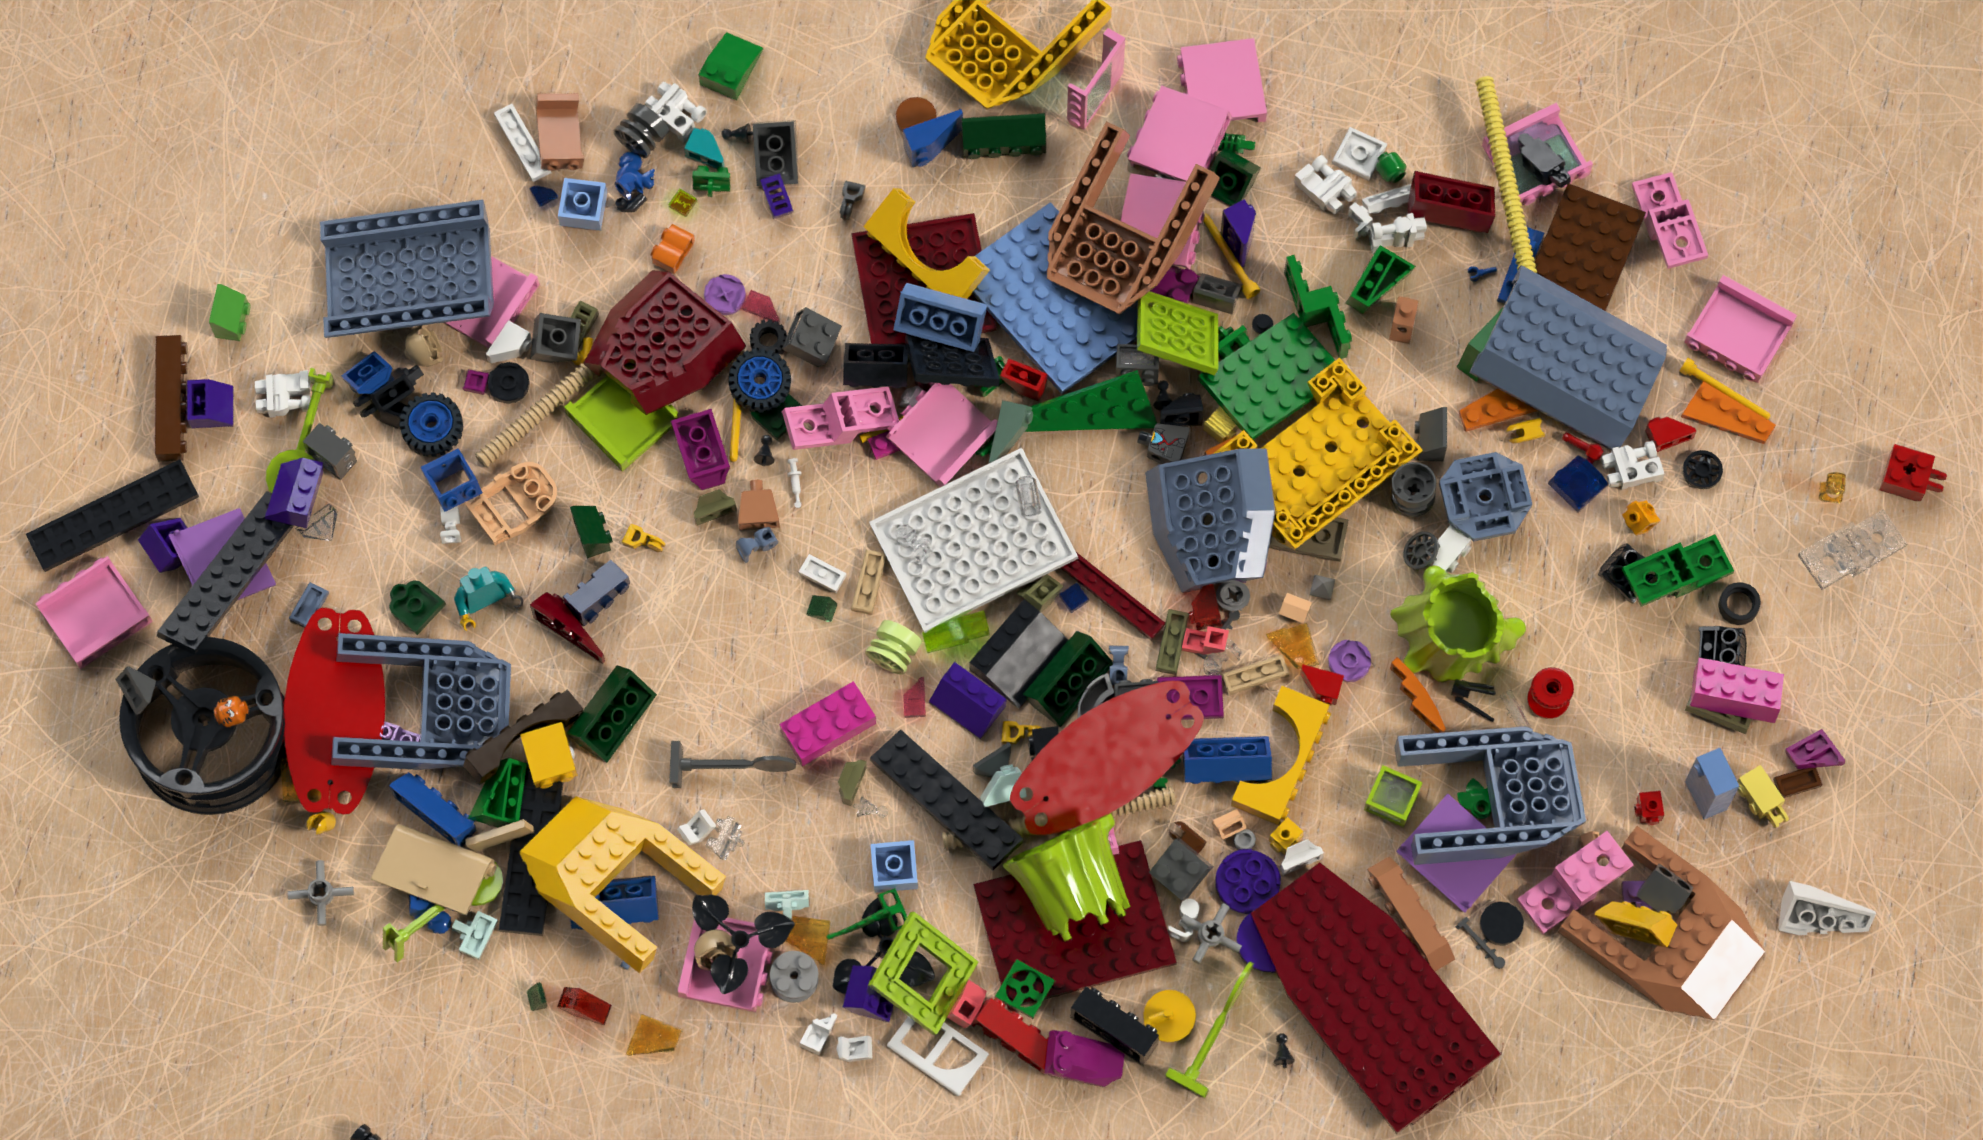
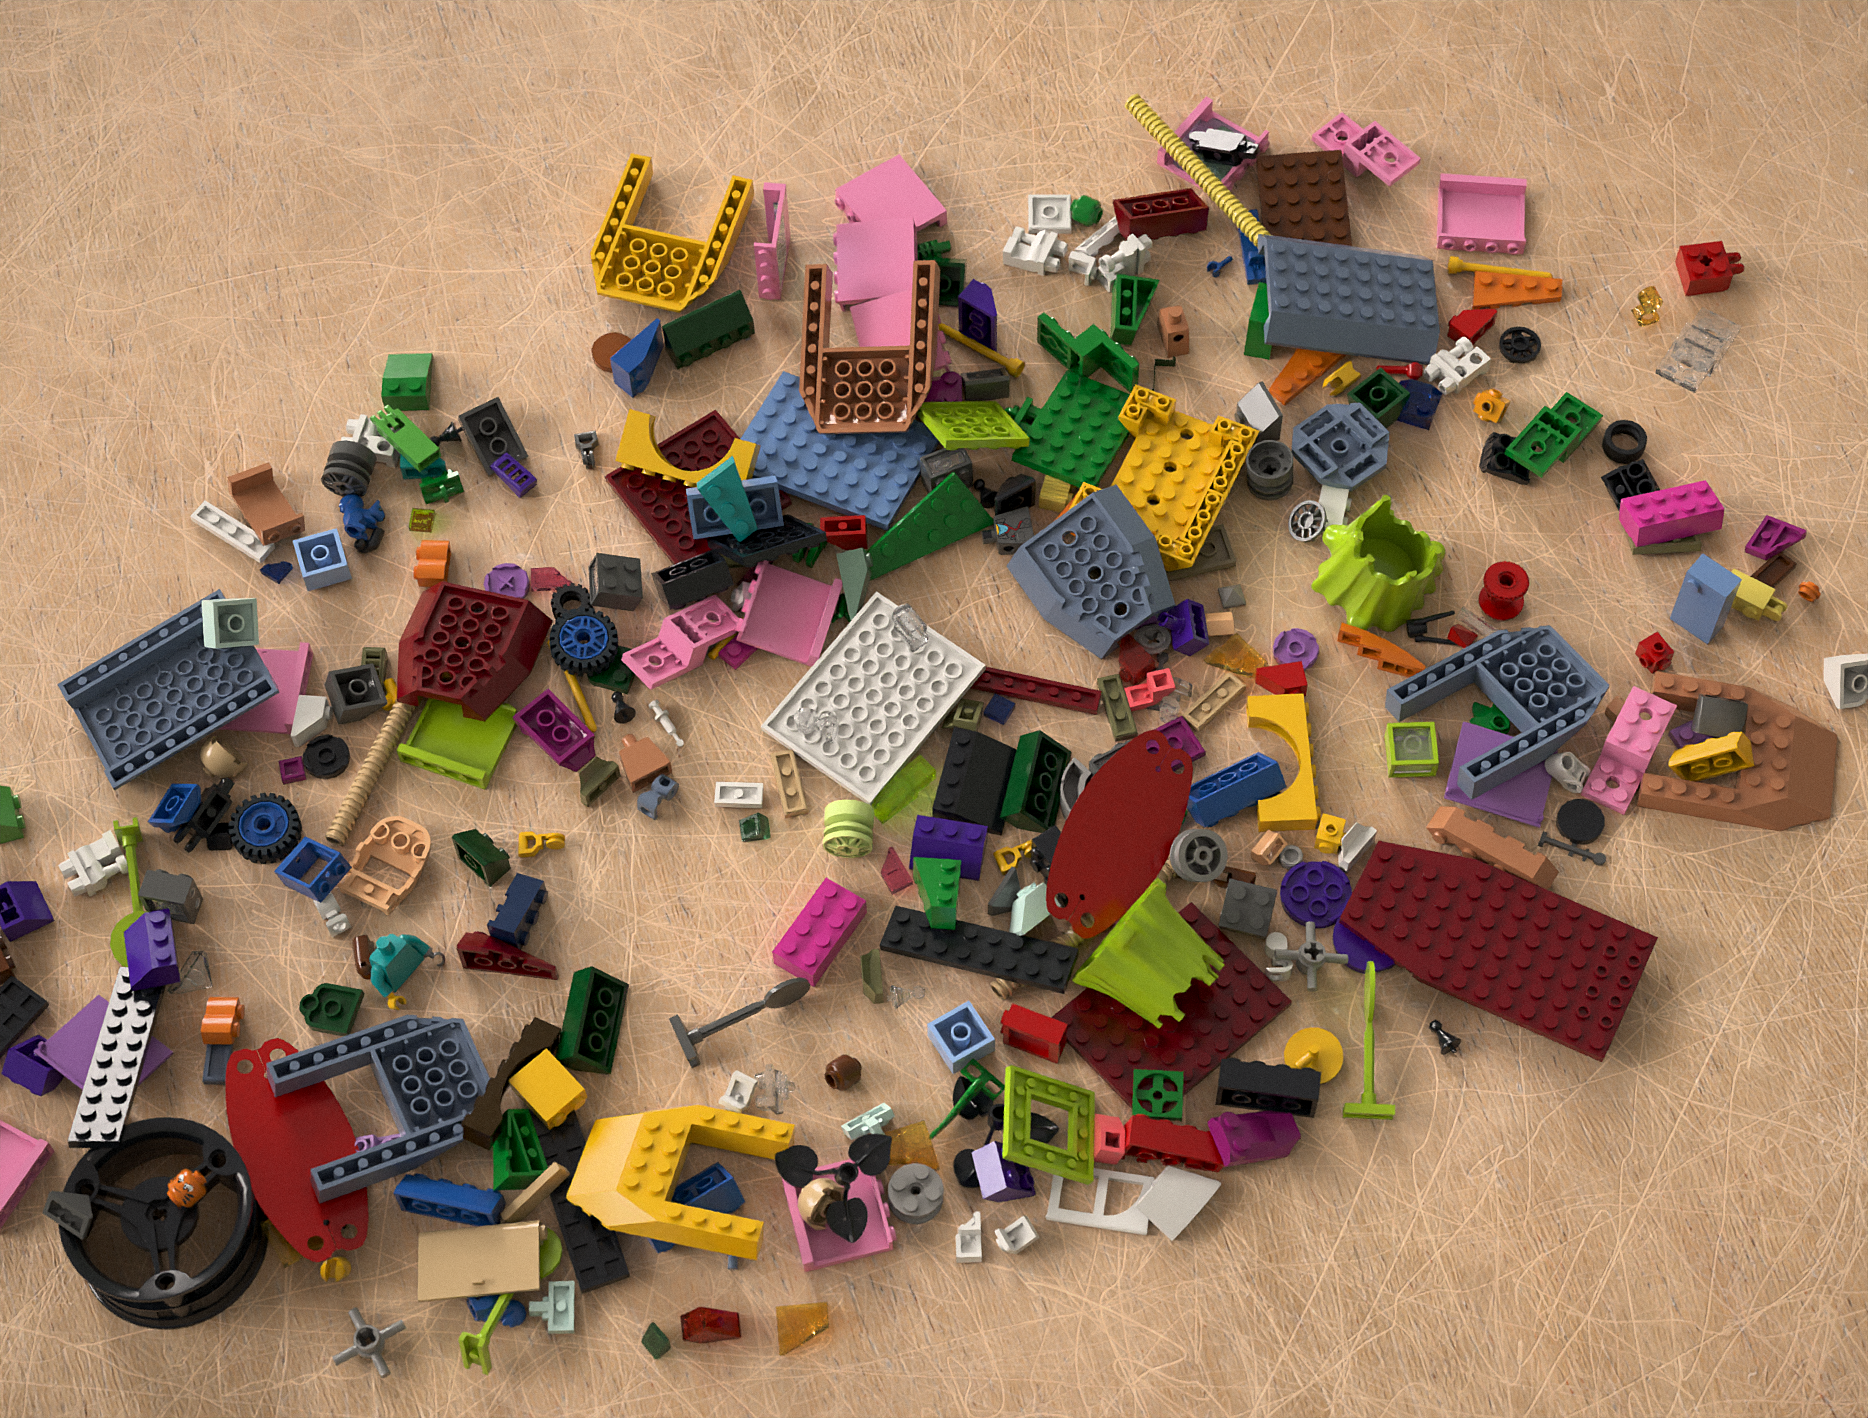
camera: 25 degrees left, 10 degrees down
(325, 575) = (222, 1020): none -> orange brick
(459, 569) = (362, 950): none -> reddish brown piece
(477, 235) = (230, 622): none -> light aqua slope
(701, 127) = (408, 440): none -> bright green hinge
(787, 850) = (843, 1072): none -> reddish brown head
(932, 313) = (728, 498): none -> teal wedge
(941, 734) = (939, 888): none -> green wedge
(953, 891) = (1034, 1033): none -> red window
(994, 1080) = (1176, 1199): none -> white slope
(1118, 671) = (1081, 753): sand blue leg -> none
(1160, 794) = (1186, 859): none -> light grey wheel
(1262, 323) = (1042, 392): black plate -> none
(1265, 599) = (1187, 626): none -> dark purple brick
(1378, 342) = (1161, 362): none -> dark green piece
(1496, 714) = (1461, 636): none -> red slope
(1515, 878) = (1567, 770): none -> white piece
(1544, 467) = (1380, 396): none -> dark green slope
(1817, 814) = (1809, 591): none -> orange plate

